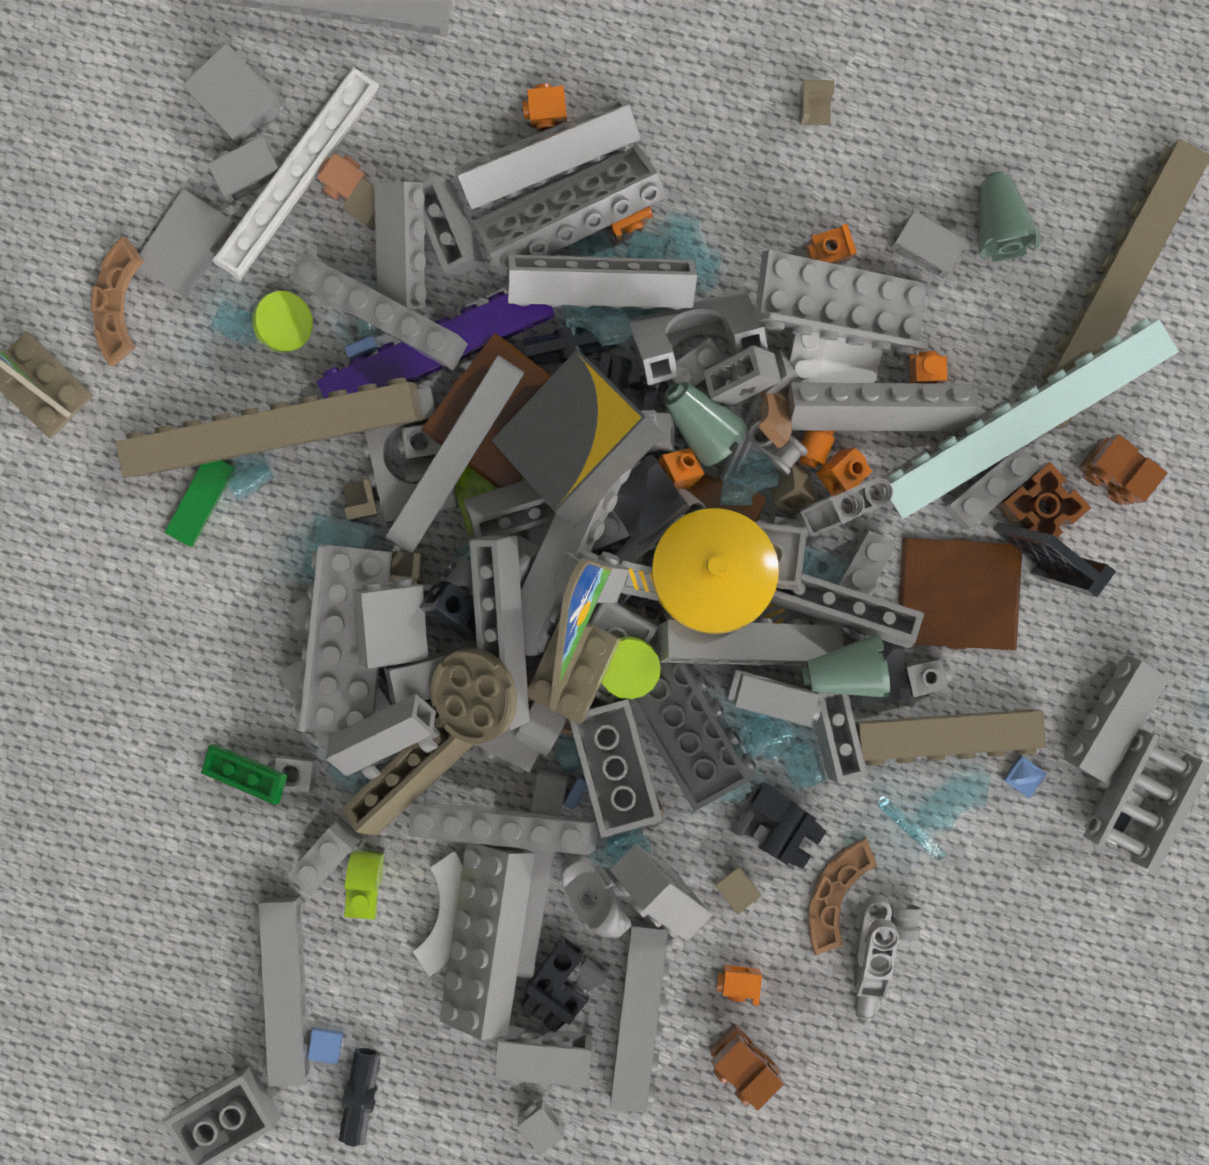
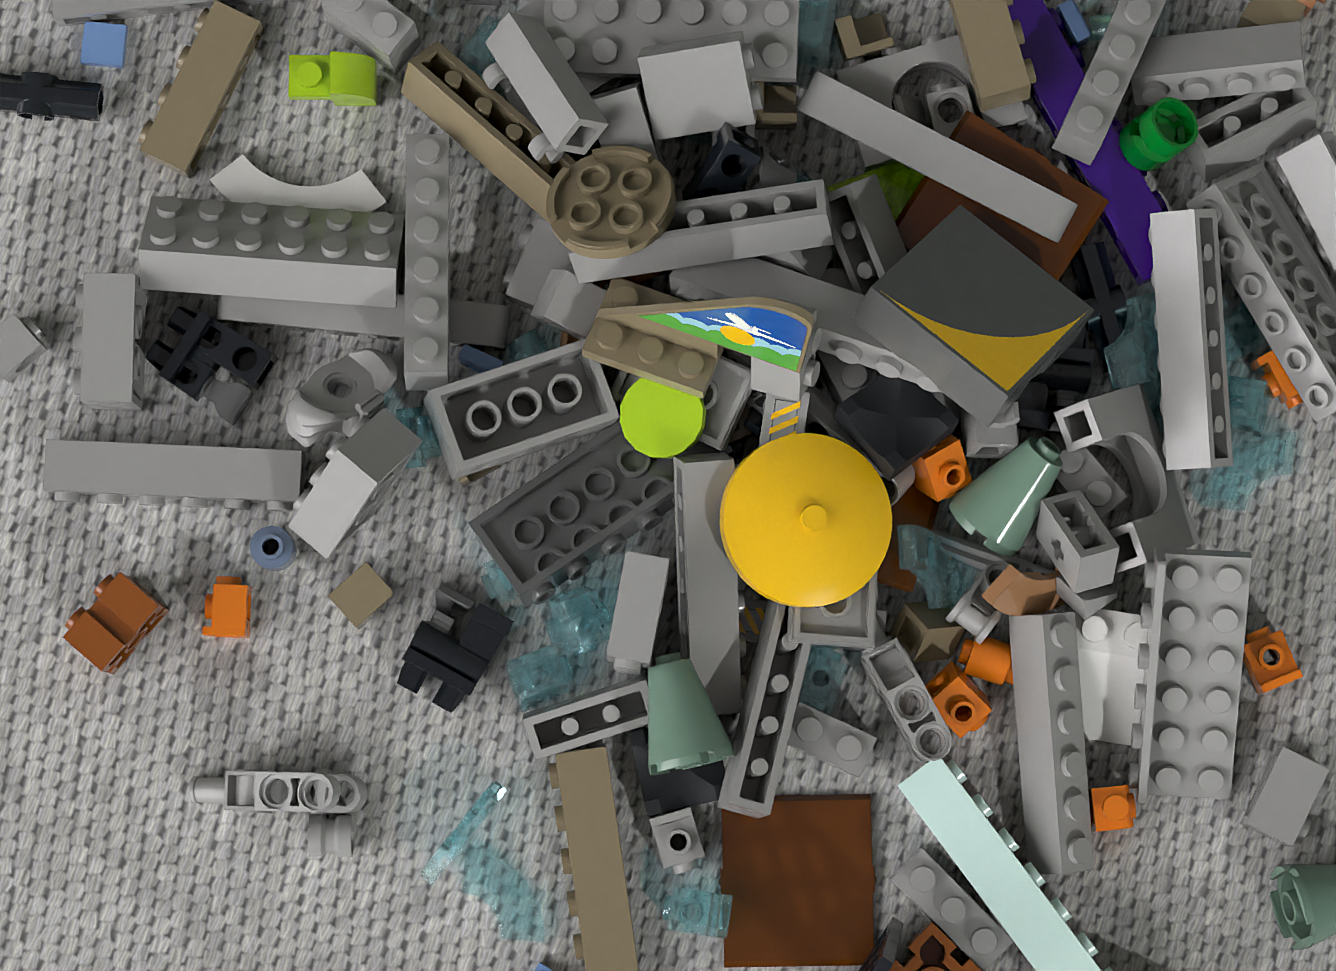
camera: 80 degrees right, 5 degrees down
(363, 979) = (201, 88): none -> dark tan brick
(449, 292) = (1158, 134): none -> green wheel
(700, 941) = (285, 554): none -> sand blue brick
(830, 891) = (364, 729): medium nougat tile -> none
(979, 657) = (711, 915): none -> clear light blue brick

